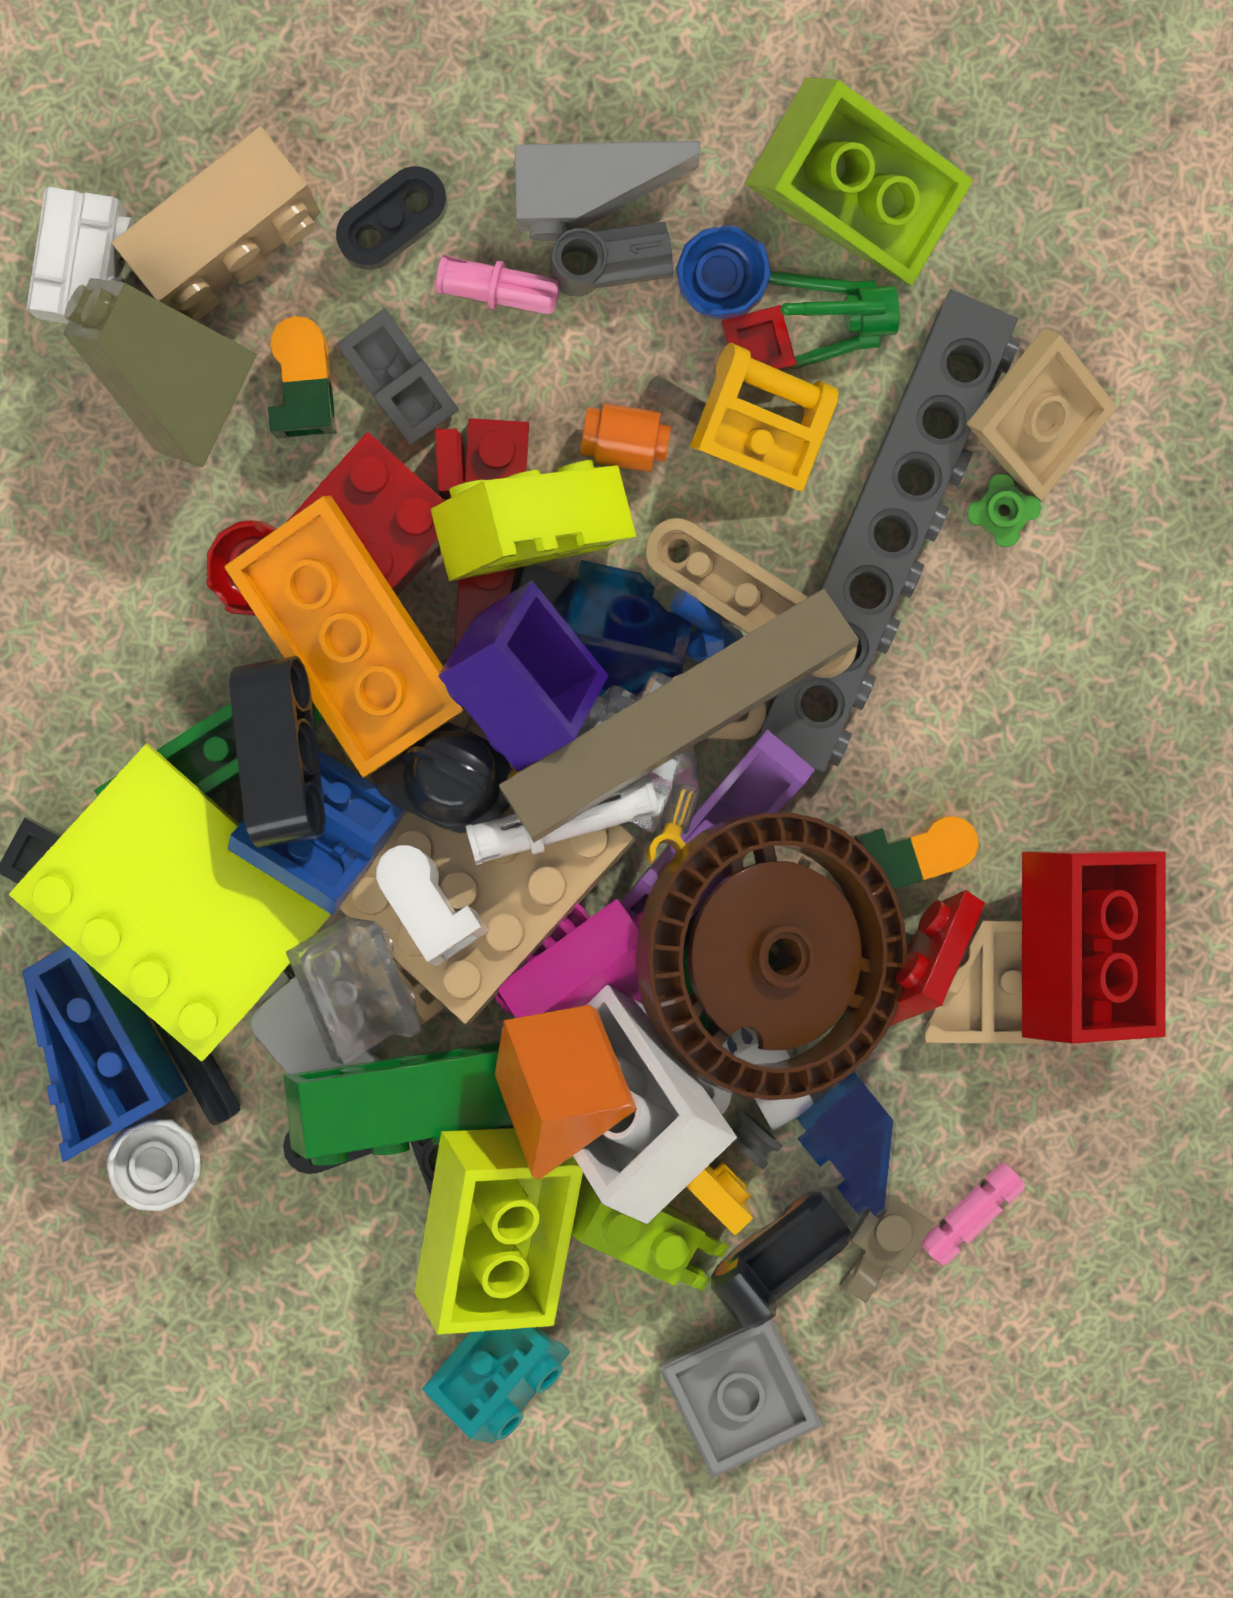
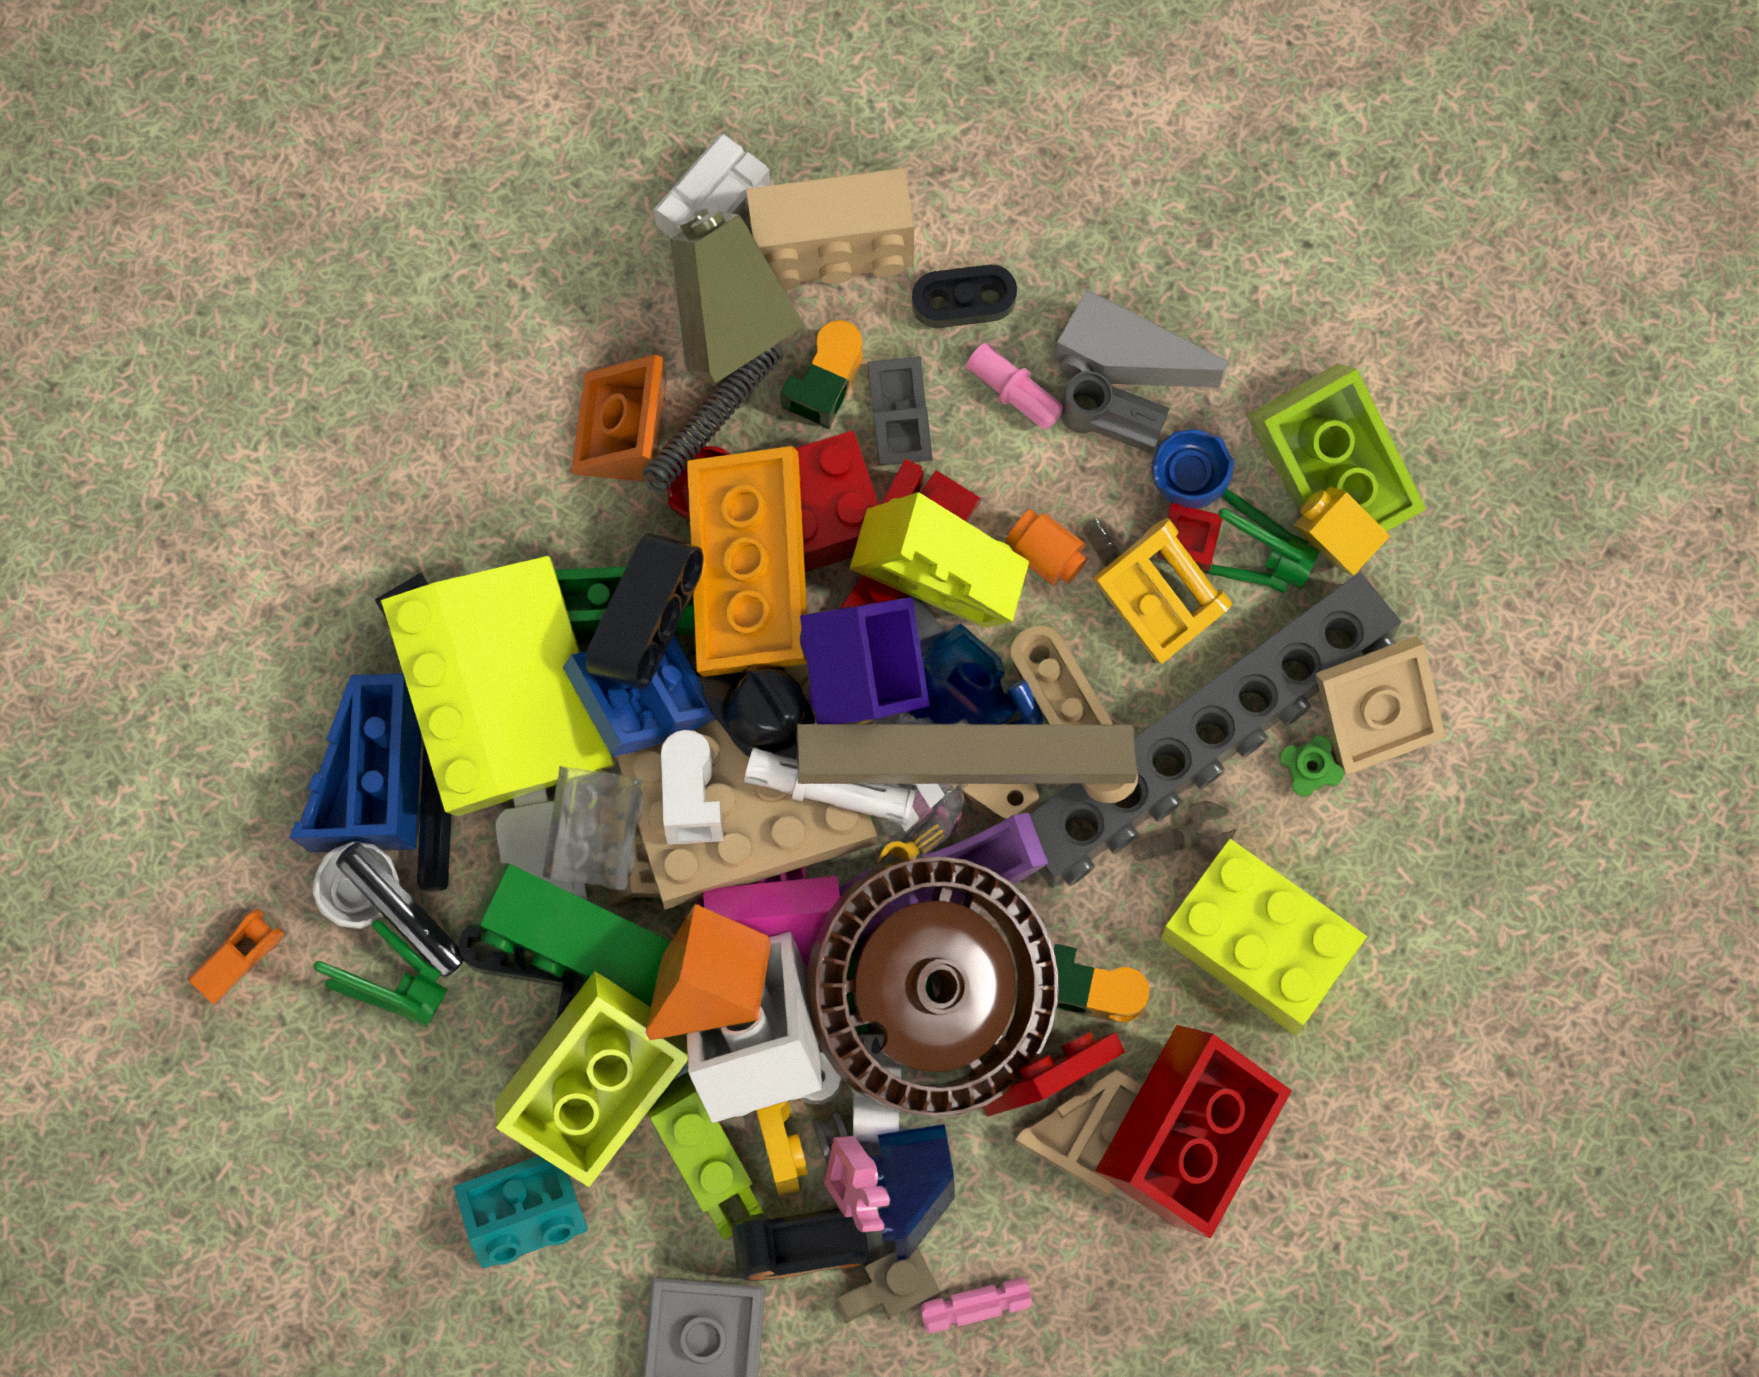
camera: 30 degrees right, 15 degrees down
(79, 1301) = (228, 964): none -> orange bar
(126, 547) = (620, 419): none -> orange slope
(202, 572) = (701, 409): none -> dark grey piece
(210, 1165) = (400, 909): none -> black axle
(276, 1236) = (414, 997): none -> green plant
(799, 1177) = (853, 1184): none -> bright pink plate
(907, 255) = (1340, 529): none -> yellow brick
(920, 649) = (1186, 835): none -> clear smoke bar
(1053, 711) = (1263, 937): none -> neon yellow brick

